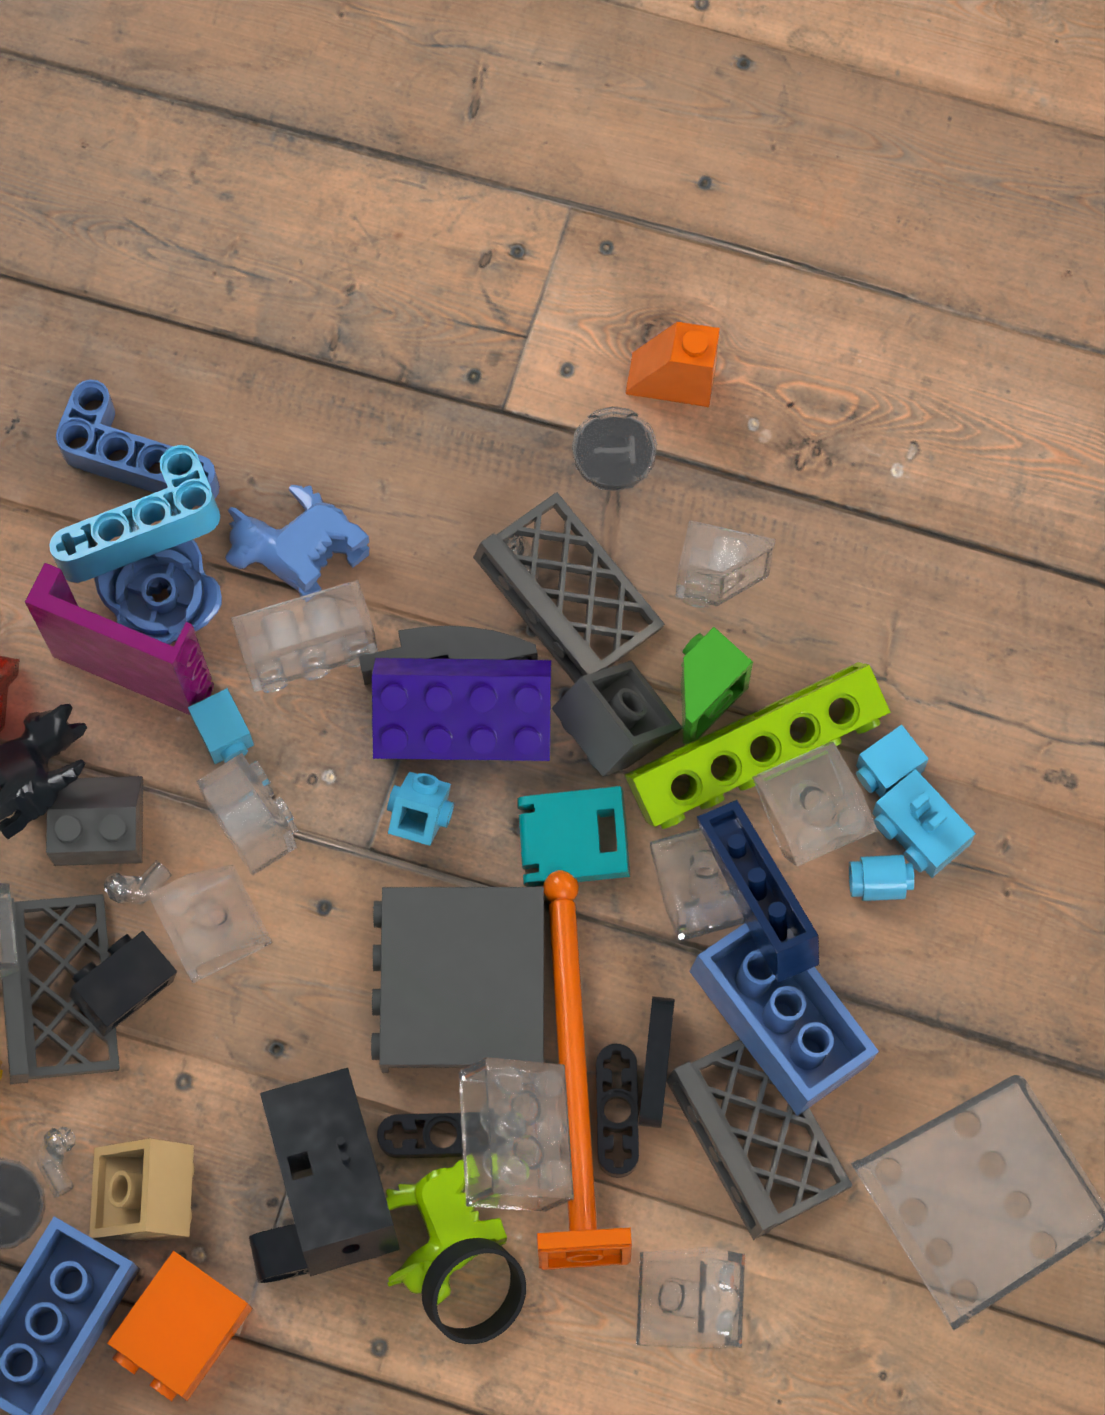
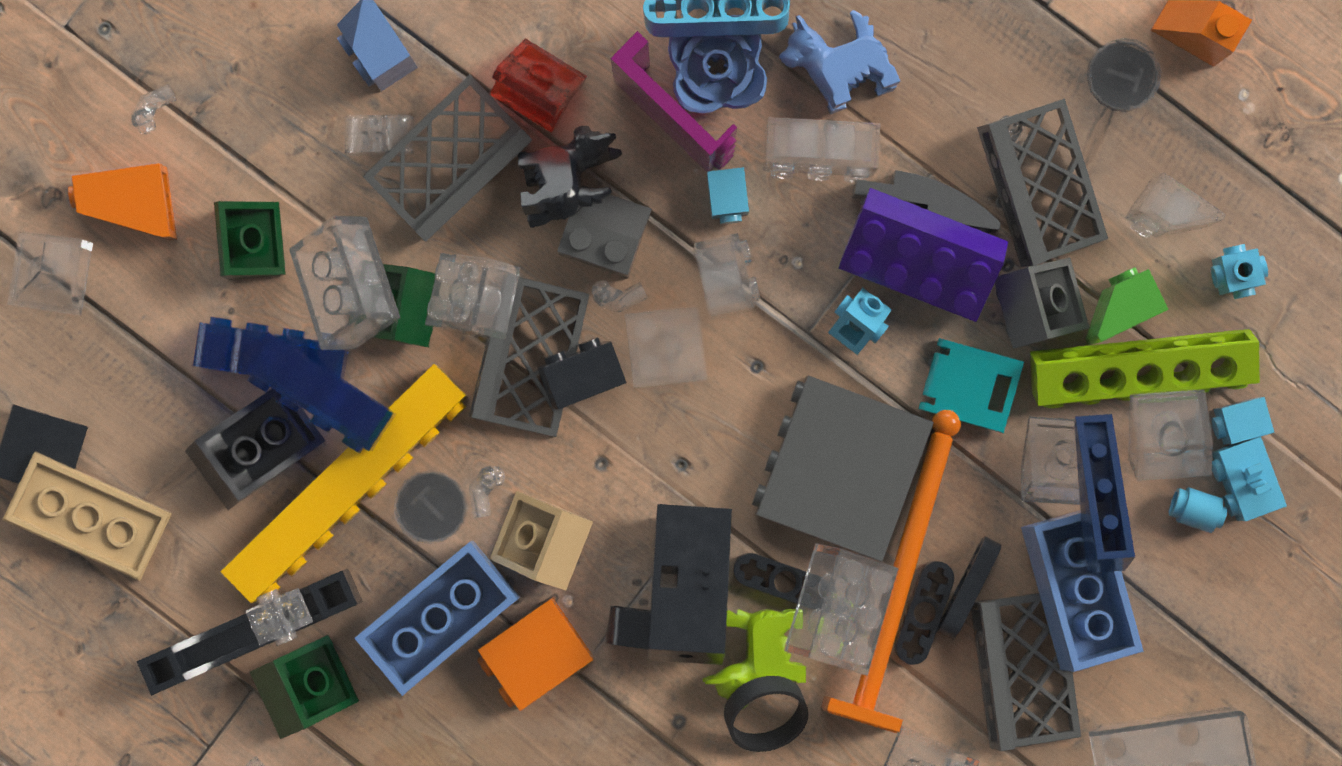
camera: 20 degrees right, 15 degrees up
(820, 617) = (1226, 275): none -> medium azure brick

